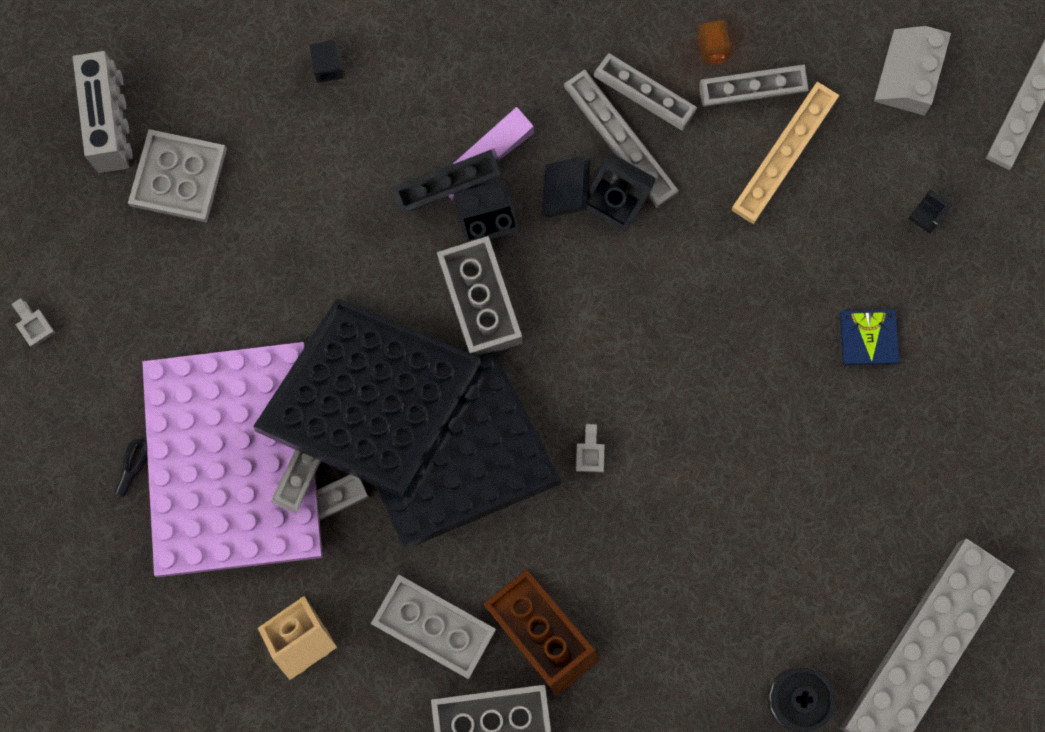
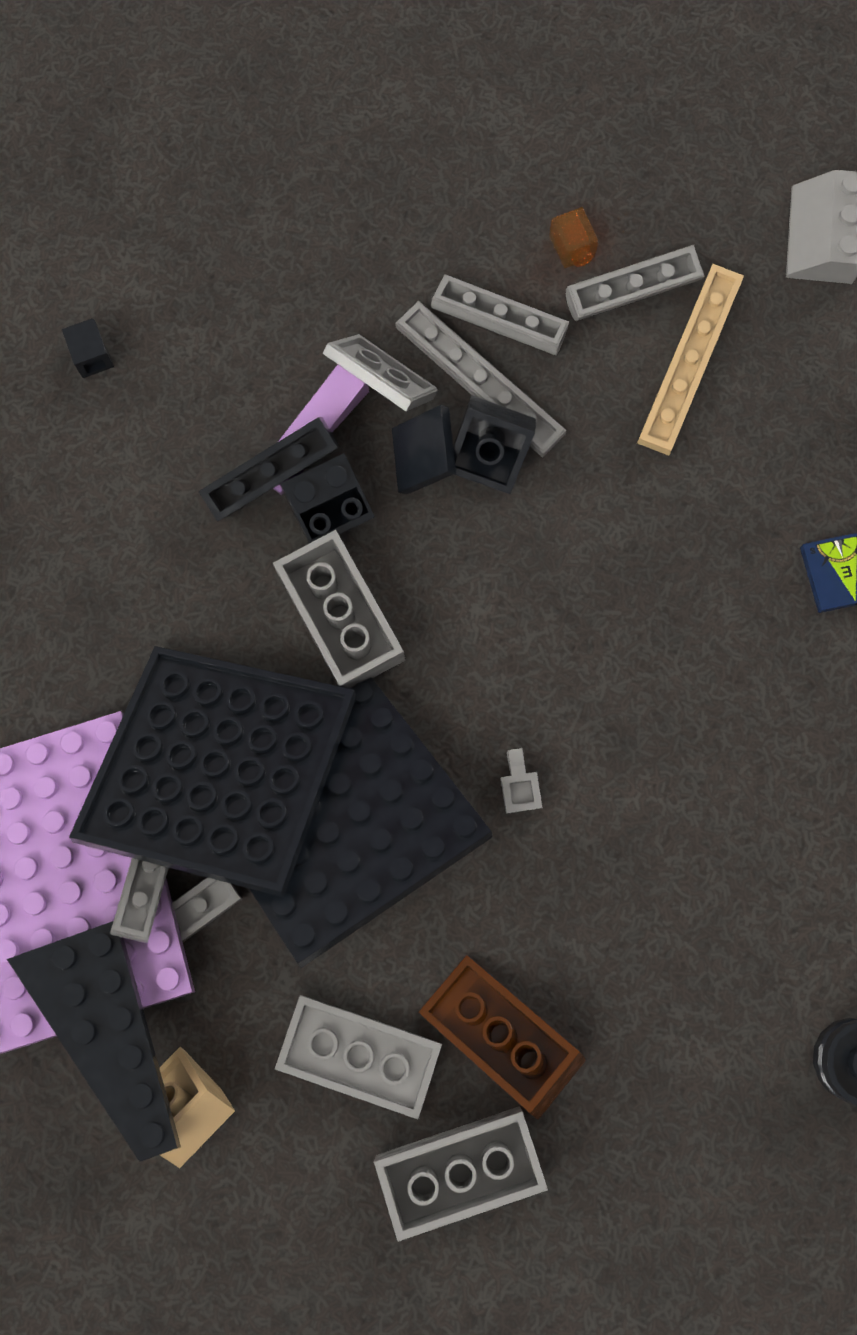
camera: 10 degrees left, 0 degrees up
(251, 558) = (97, 1013): none -> black wing
(545, 120) = (381, 371): none -> light grey tile

